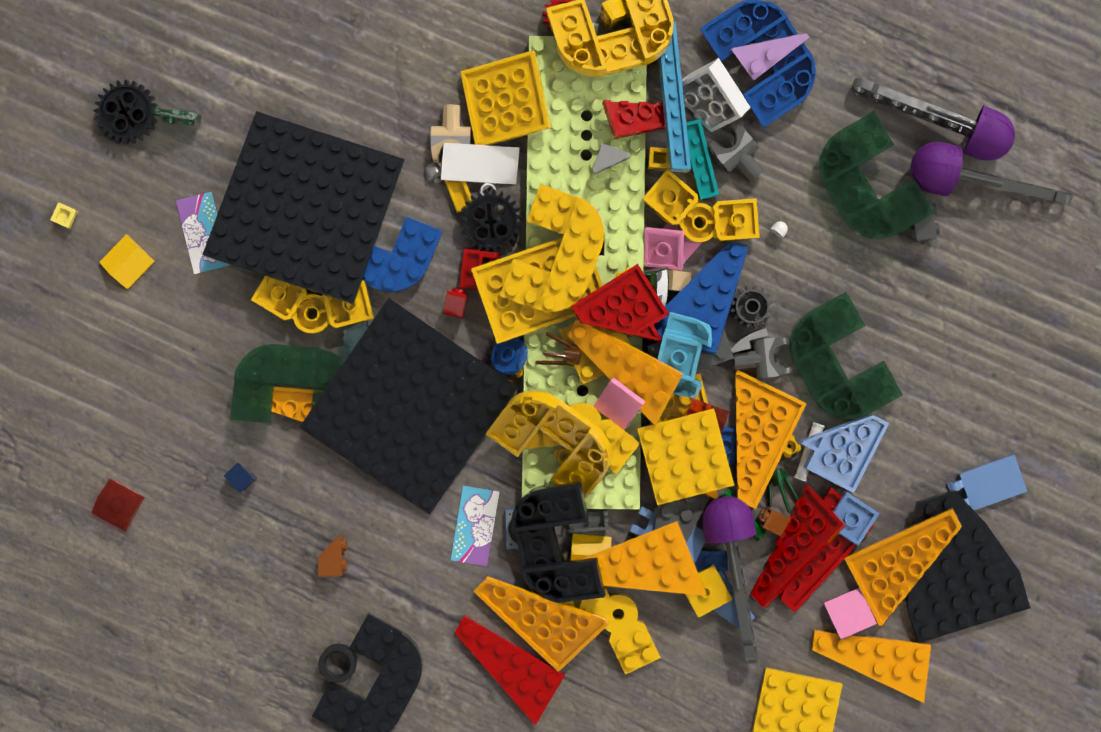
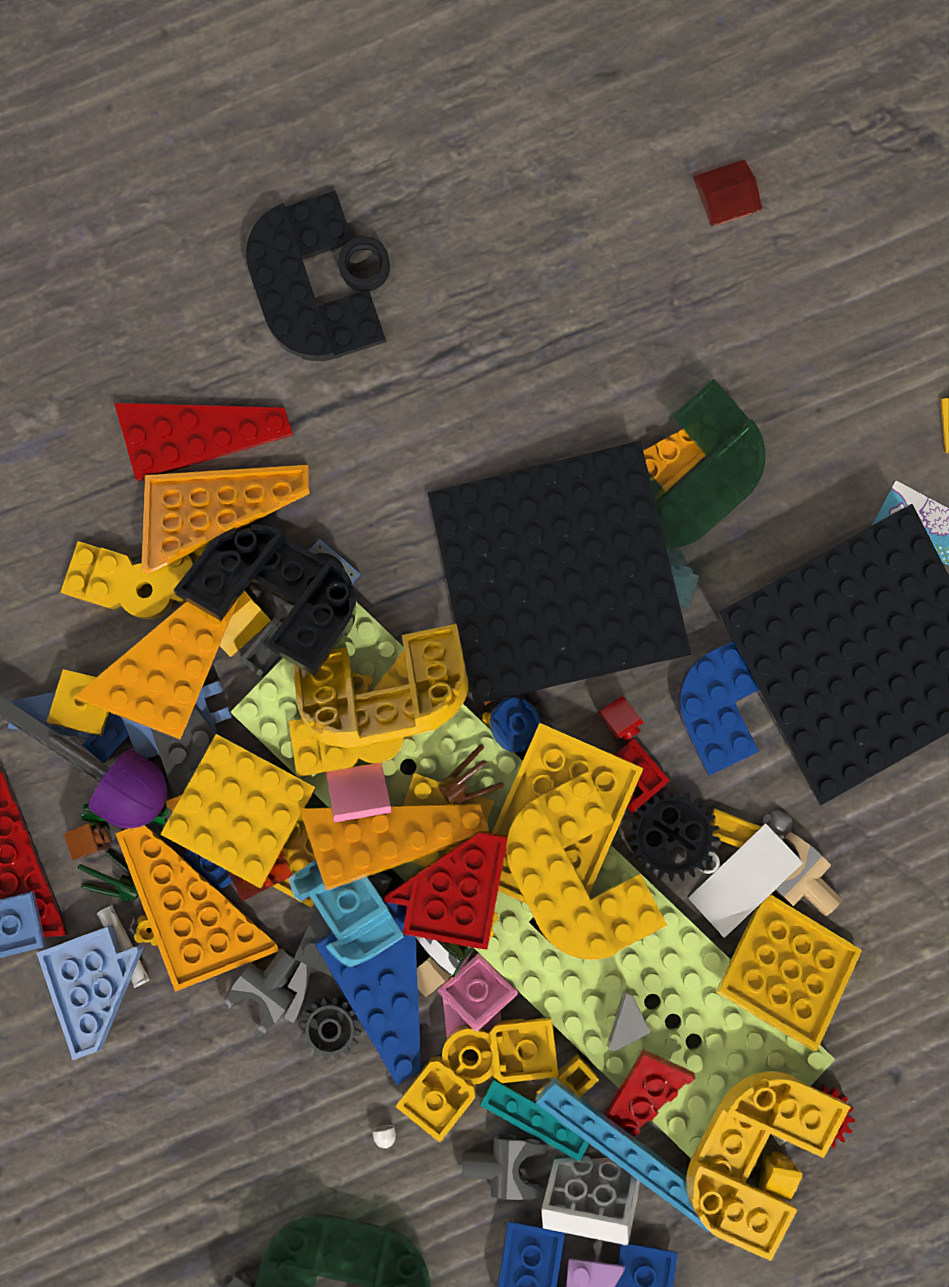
camera: 135 degrees right, 5 degrees down
(240, 477) = (643, 336): dark blue panel -> none
(295, 302) = (772, 554): yellow plate -> none
(331, 560) = (472, 352): dark orange slope -> none
(474, 525) = (373, 528): sticker -> none
(805, 536) = (38, 858): red wing -> none
(822, 371) = (193, 1040): clear green plate -> none

